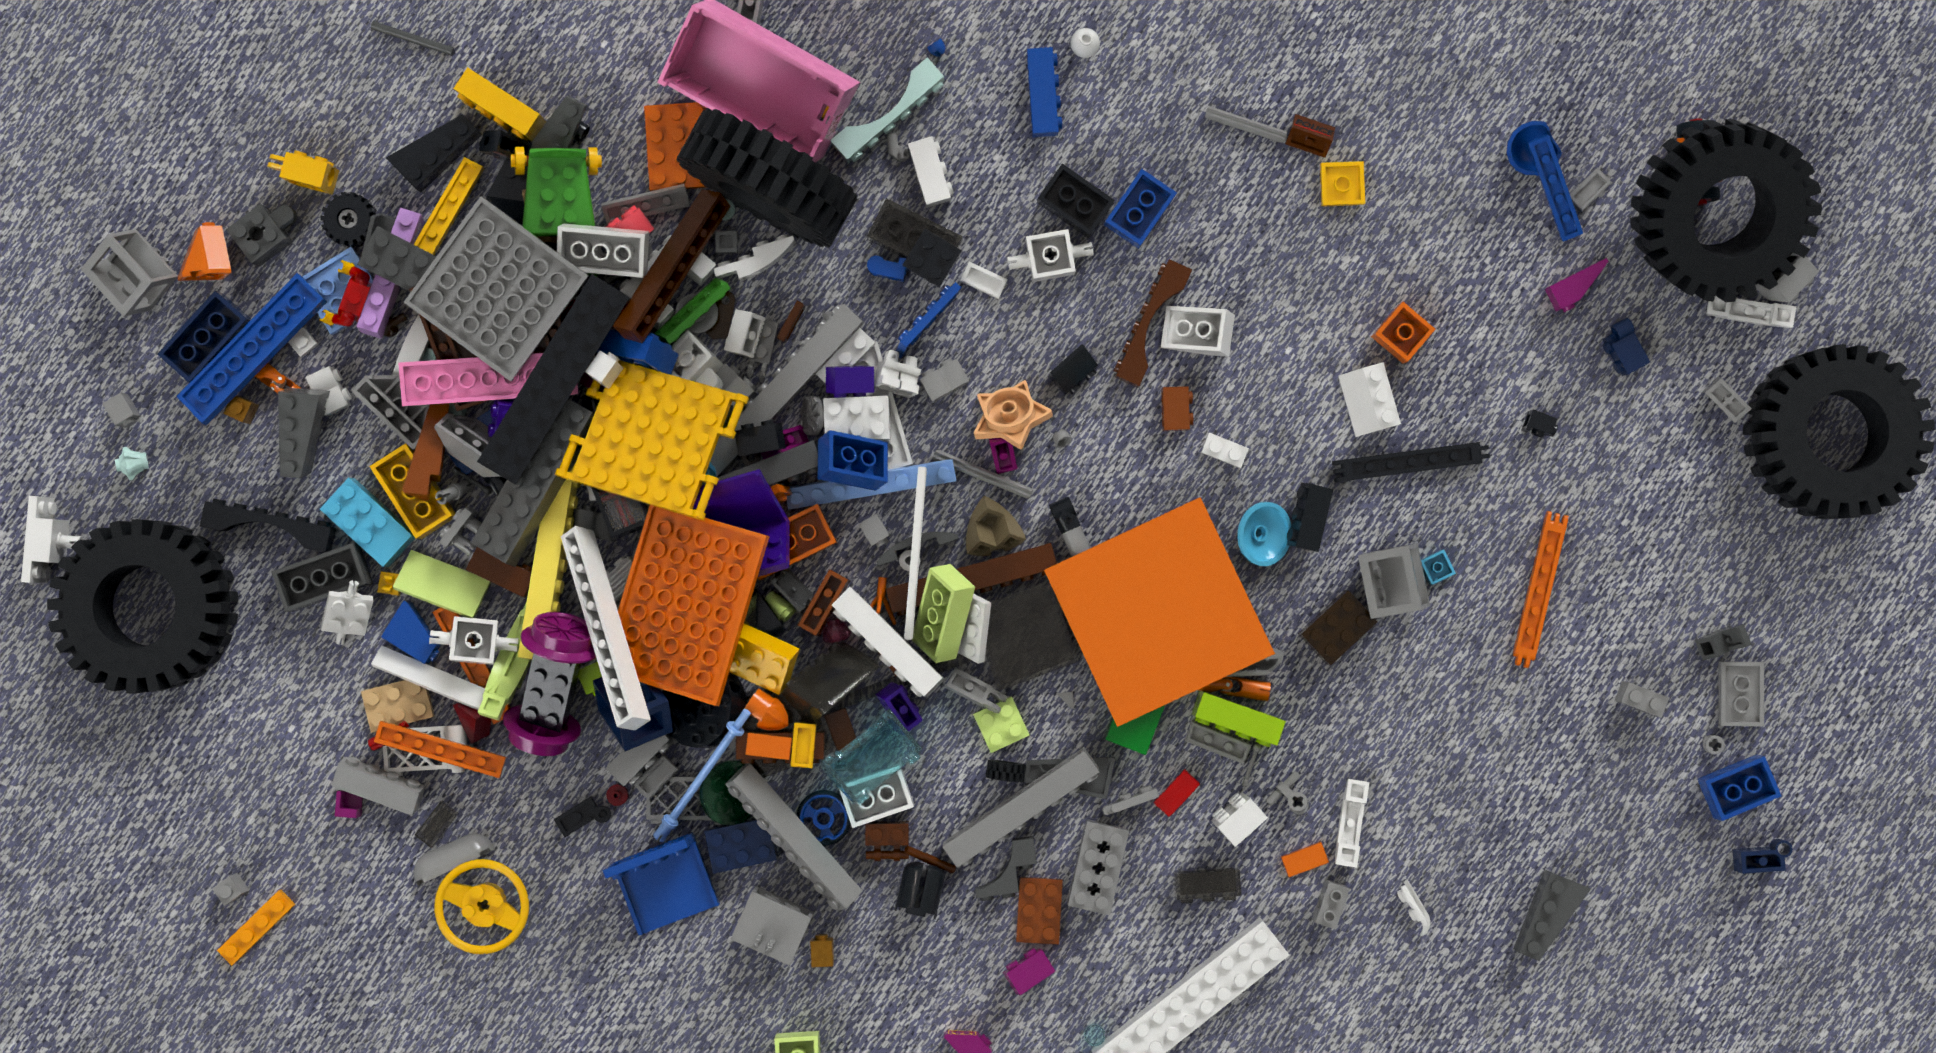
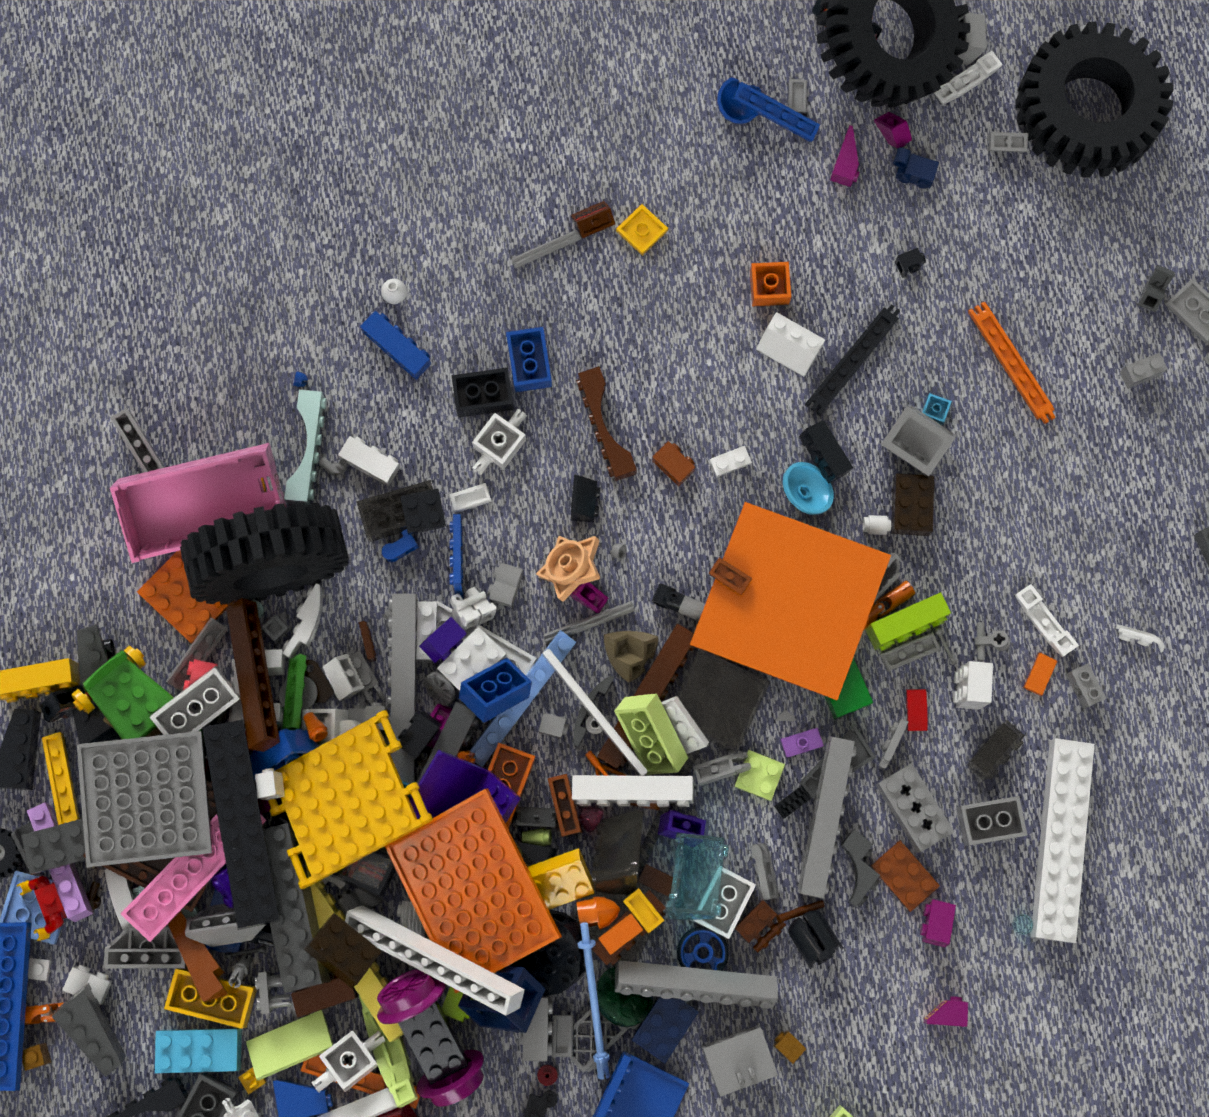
camera: 45 degrees left, 10 degrees down
(543, 553) = (342, 950): none -> dark brown brick
(682, 356) = (316, 729): none -> orange cone
(932, 802) = (765, 871): none -> light grey hinge
(1060, 731) = (801, 742): none -> medium lavender plate
(1128, 546) = (730, 576): none -> dark orange plate
(1148, 935) = (991, 821): none -> light grey brick
(1198, 330) = (639, 401): white slope -> none
(1292, 616) = (876, 525): none -> white brick
(1642, 296) = (894, 129): none -> magenta slope

